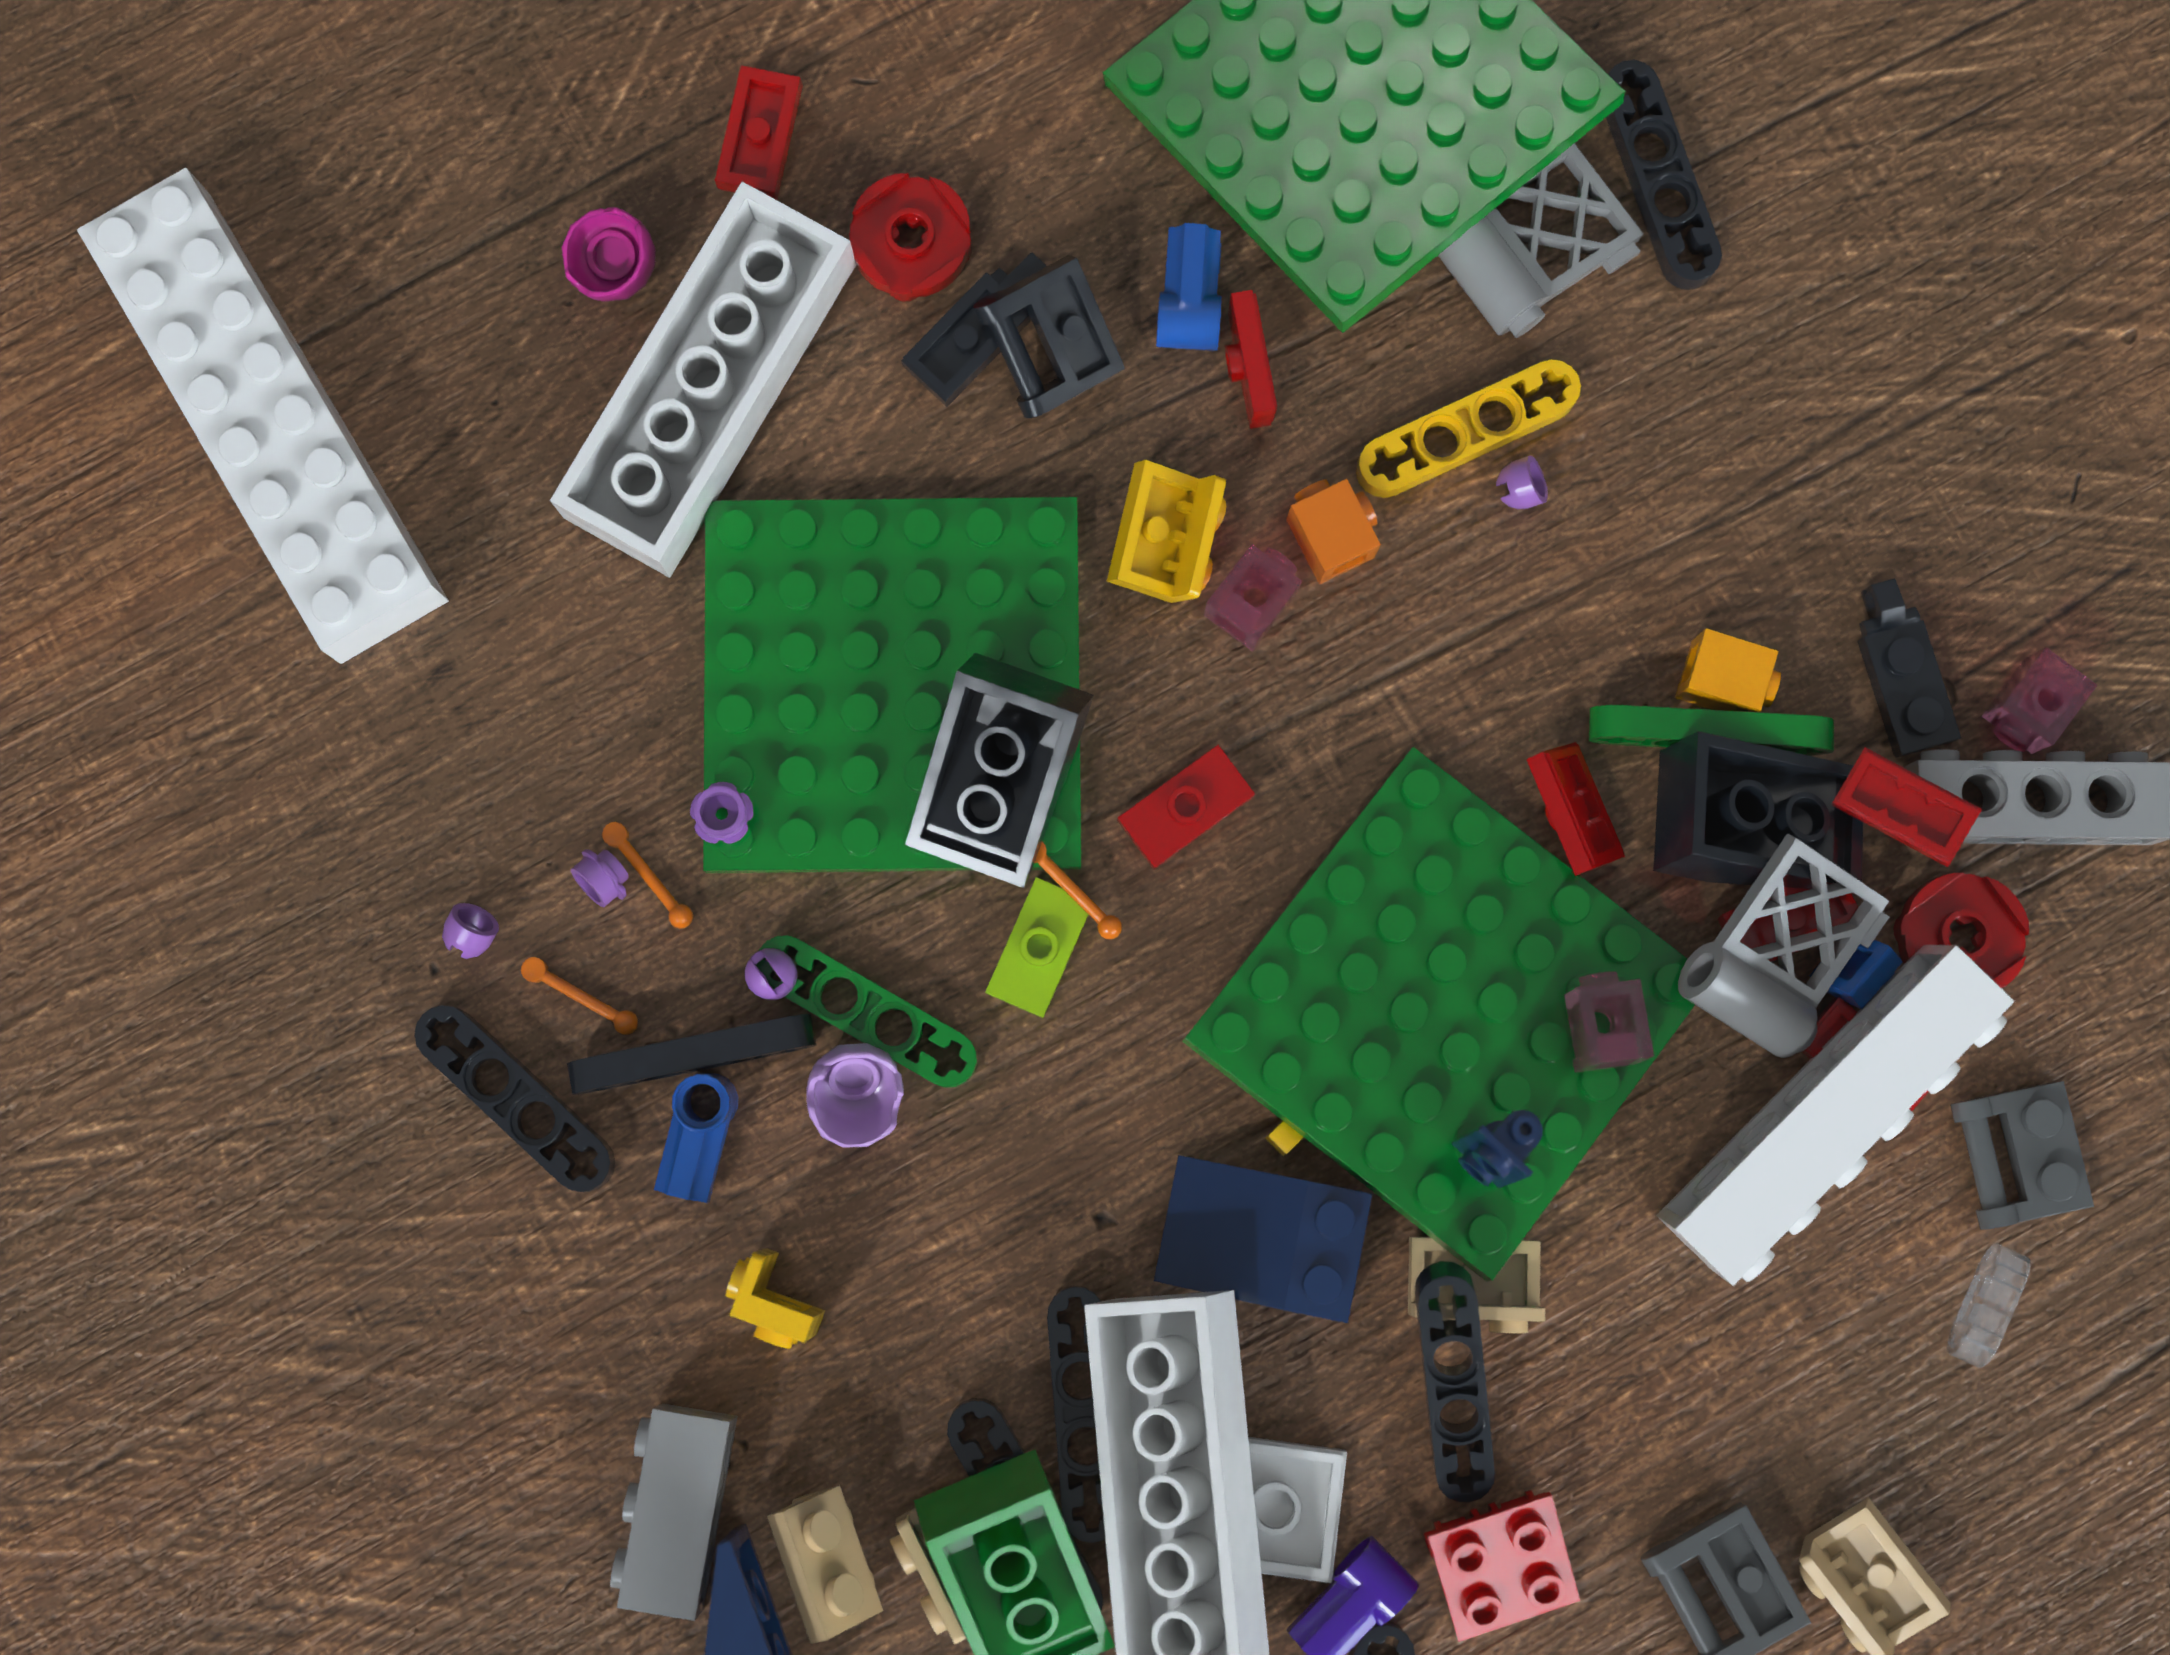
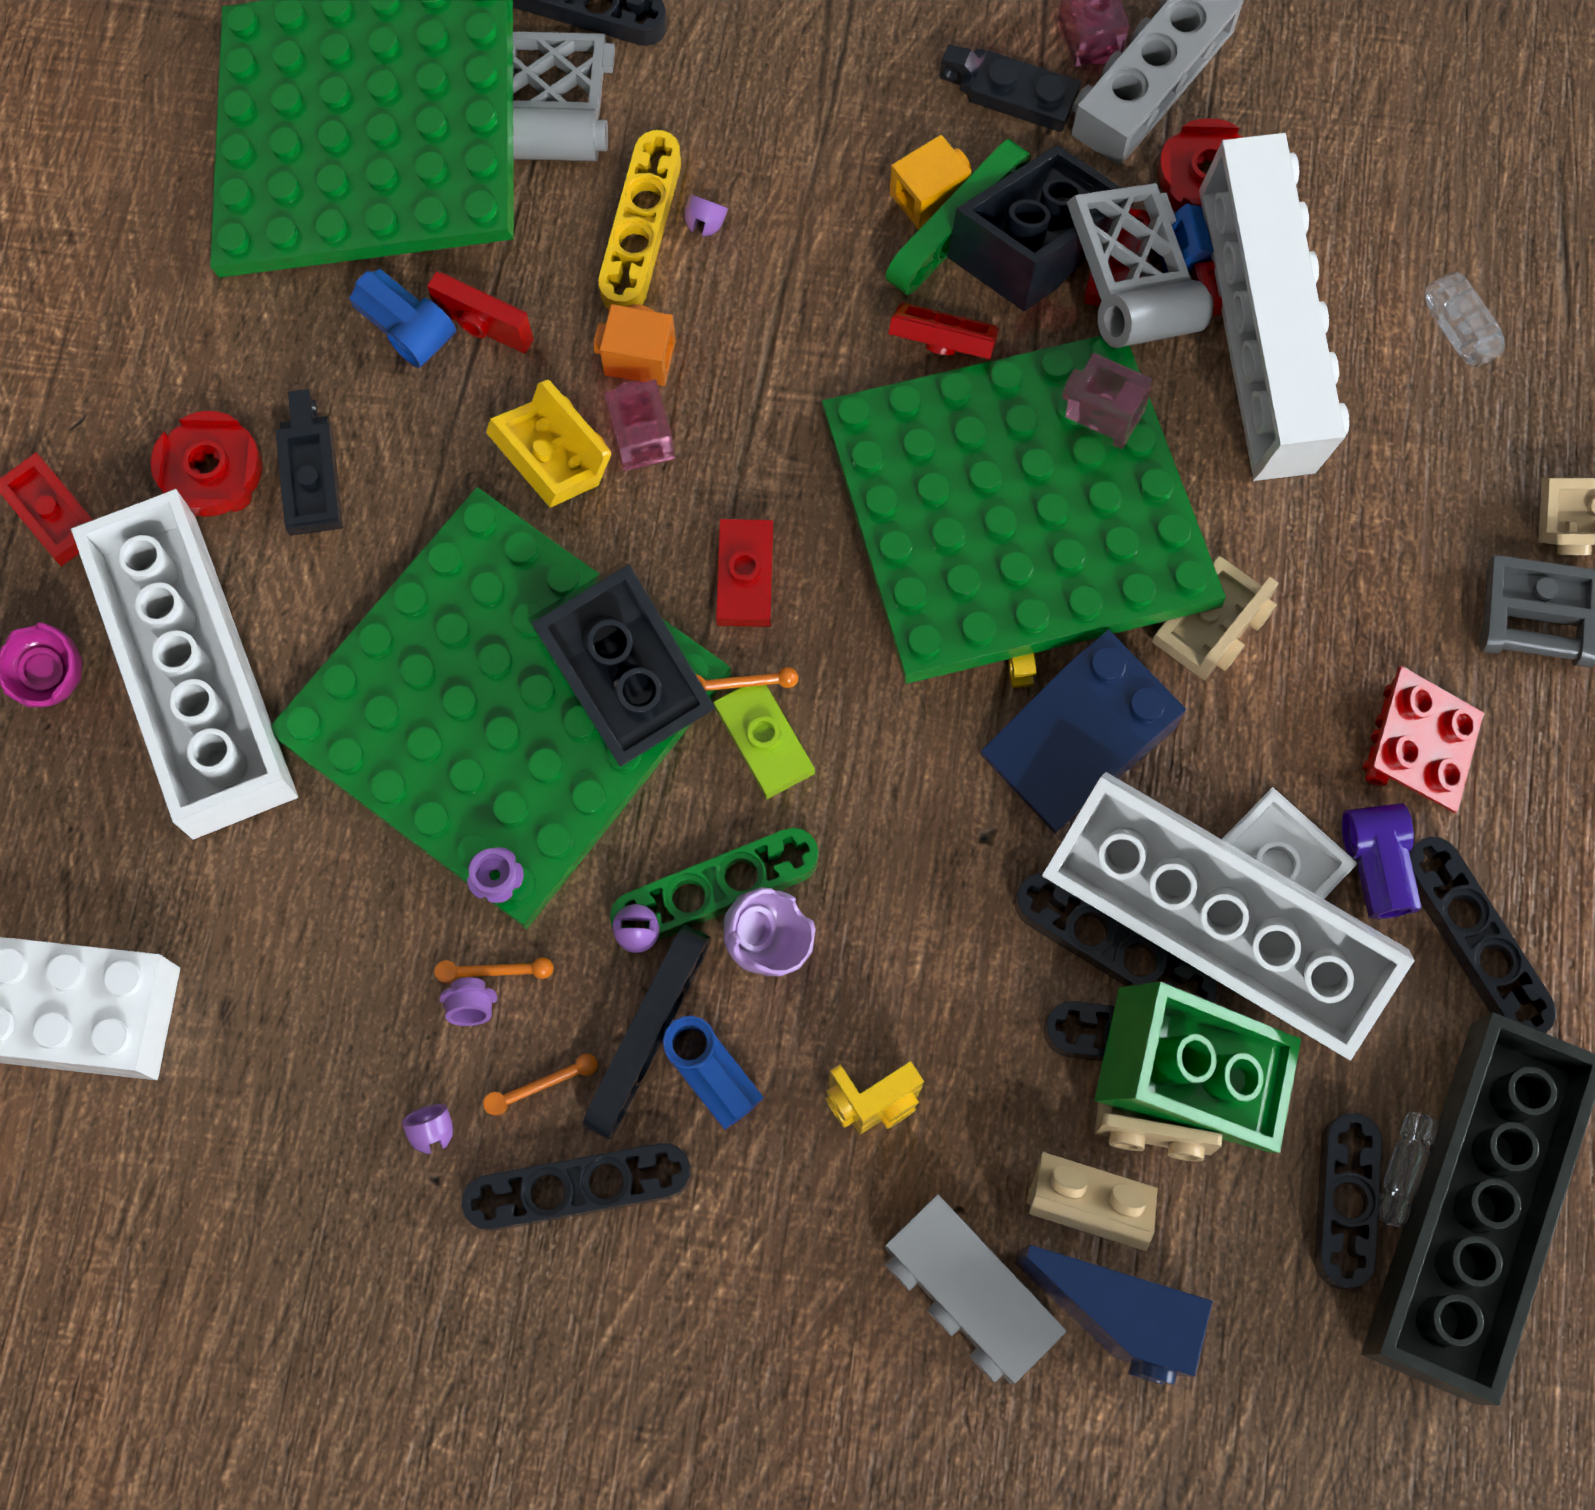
camera: 50 degrees left, 10 degrees down
(1068, 328) = (359, 405): black plate -> none
(1455, 1382) = (1281, 666): black beam -> none
(1497, 1150) = (1145, 512): dark blue hinge -> none
(1906, 807) = (1104, 127): red plate -> none
(2040, 1151) = (1384, 224): dark grey plate -> none

